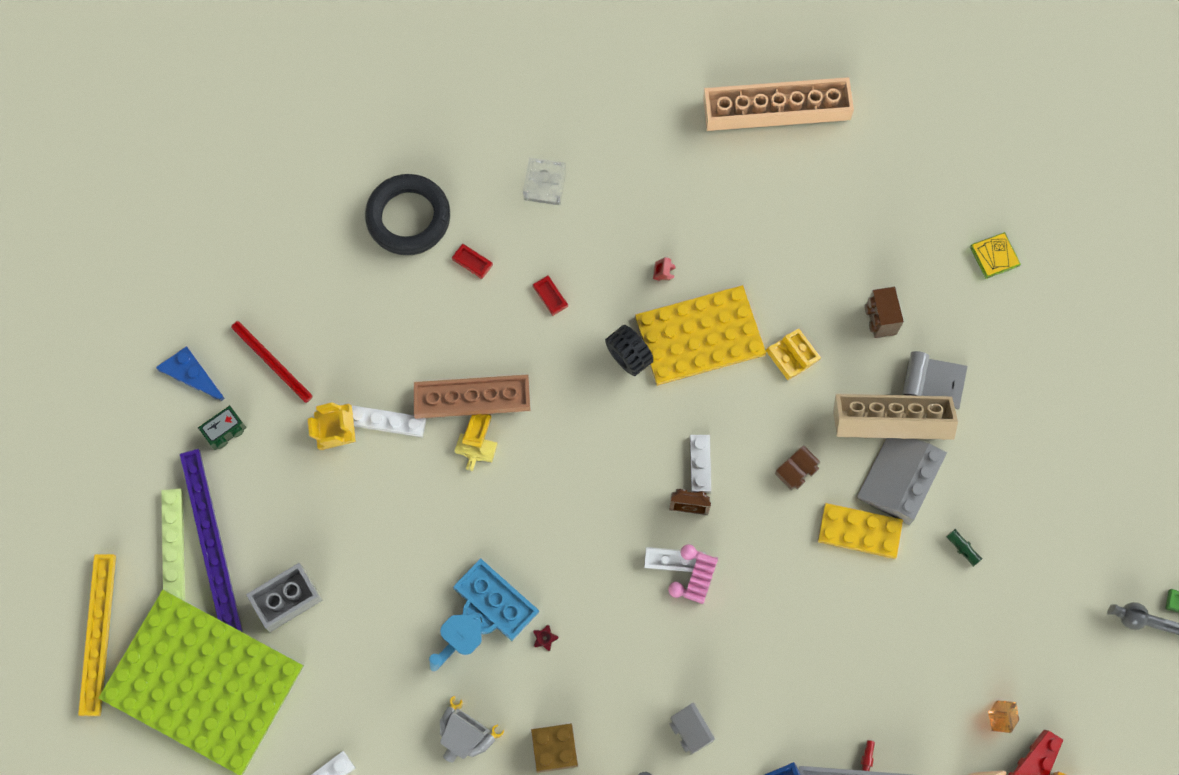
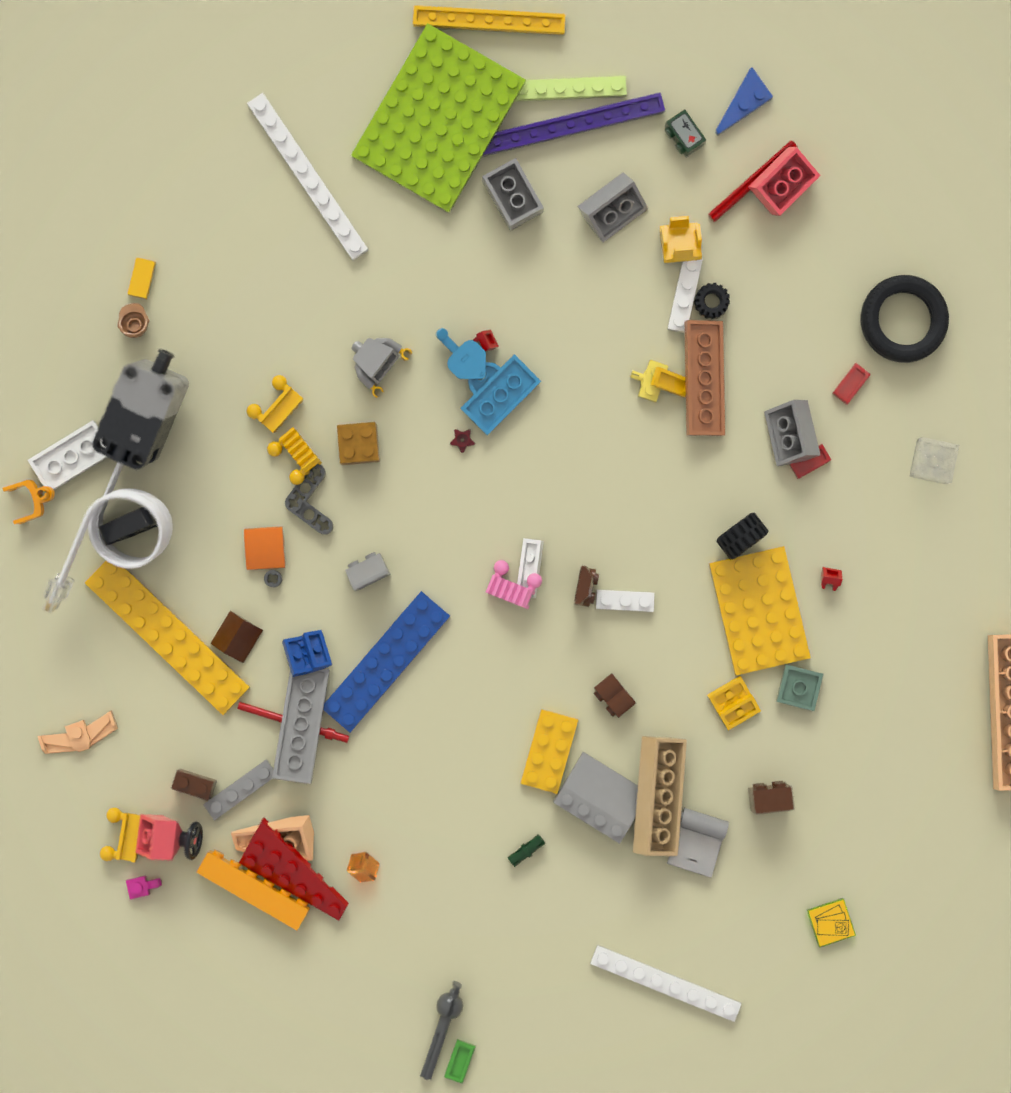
camera: 90 degrees right, 15 degrees up
(272, 328) = (784, 181): none -> coral brick
(297, 495) = (613, 207): none -> light grey slope
(393, 383) = (712, 289): none -> black tyre
(438, 617) = (486, 340): none -> red tile
(523, 311) = (792, 432): none -> light grey slope
(772, 293) = (799, 687): none -> sand green plate
(785, 706) = (385, 661): none -> blue plate
(1076, 406) = (665, 983): none -> white plate

